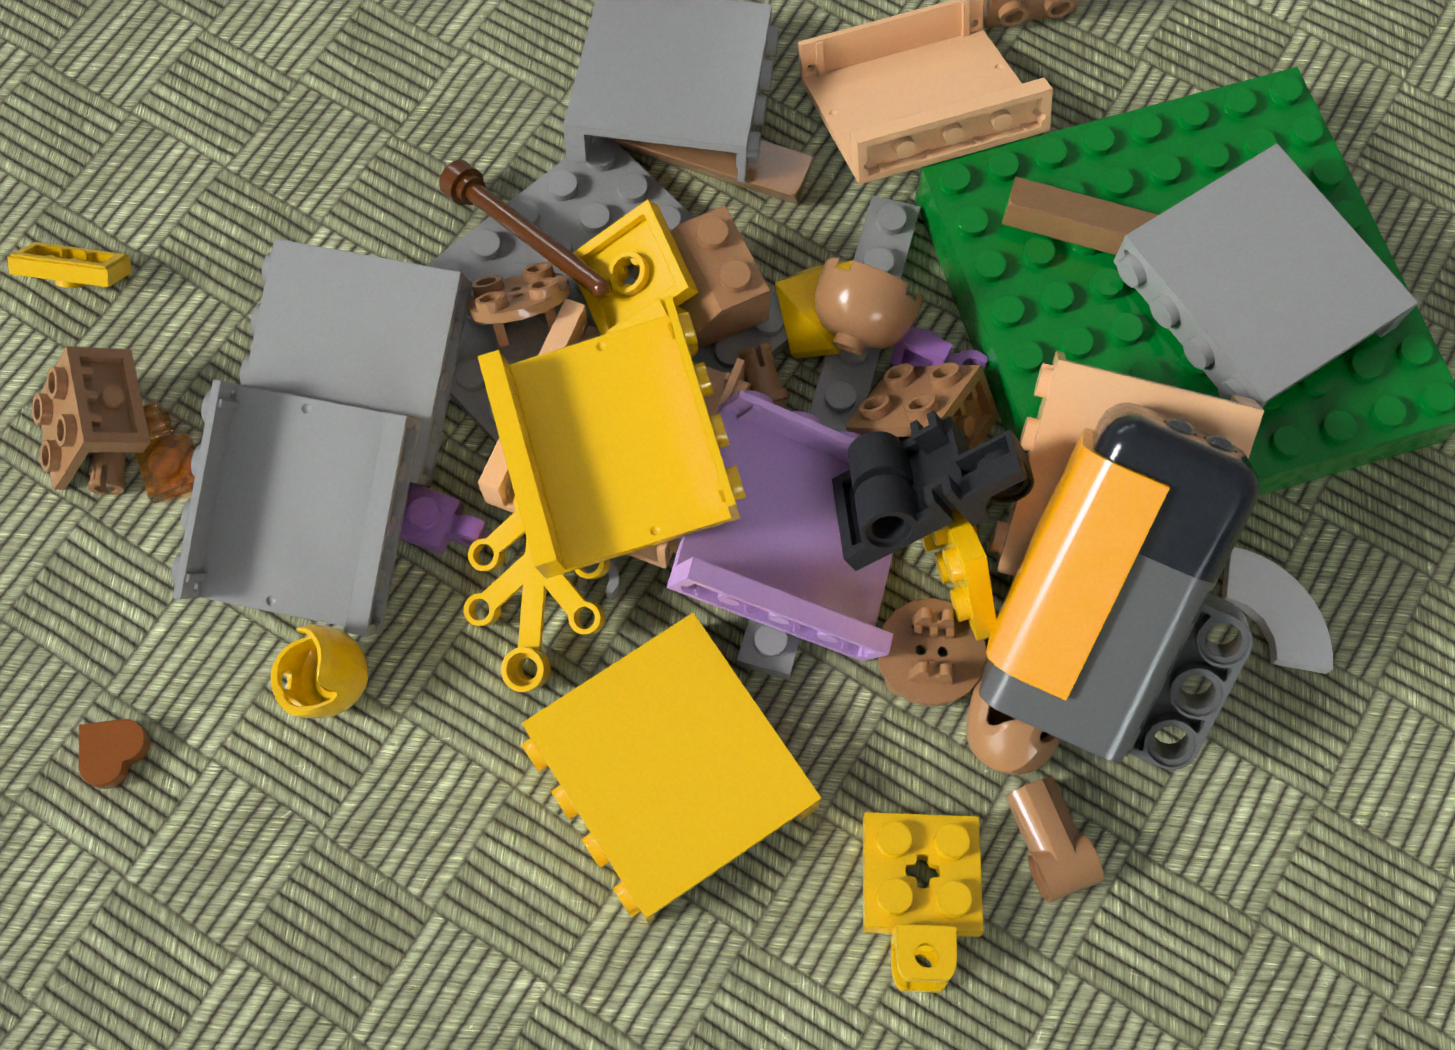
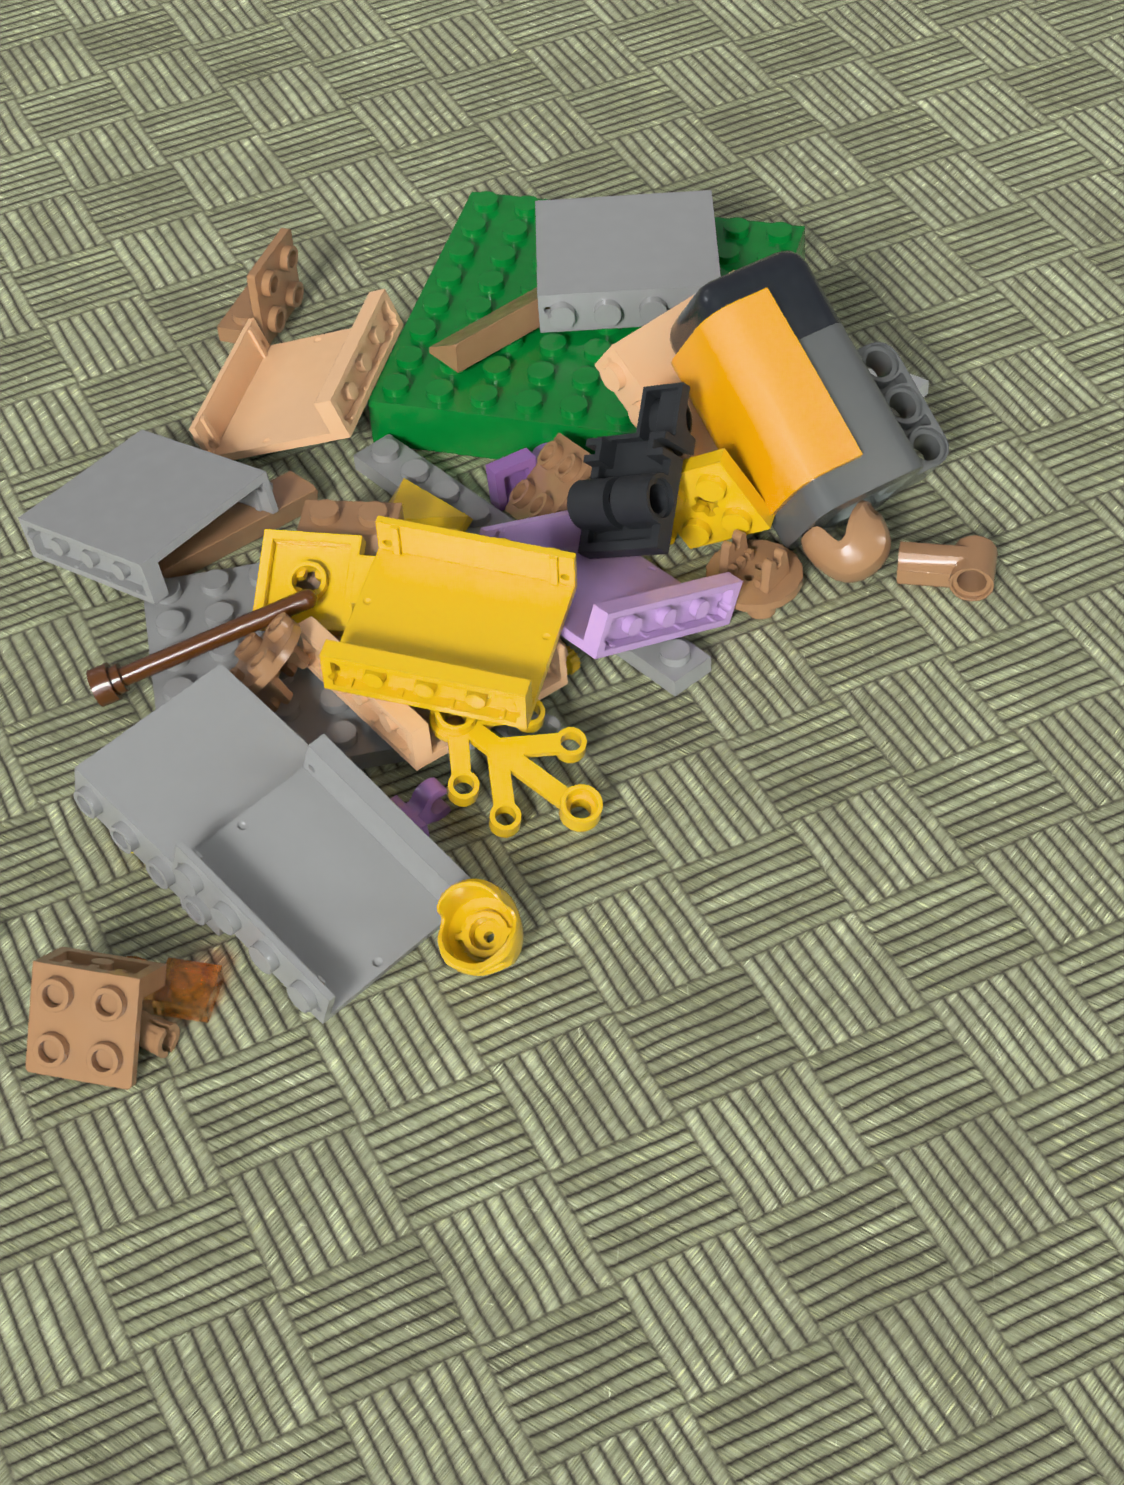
camera: 55 degrees left, 25 degrees down
(110, 749) = (424, 1129): dark orange tile -> none
(668, 766) = (733, 752): yellow panel -> none
(864, 306) = (456, 467): medium nougat cylinder -> none
(929, 918) = (953, 653): yellow plate -> none

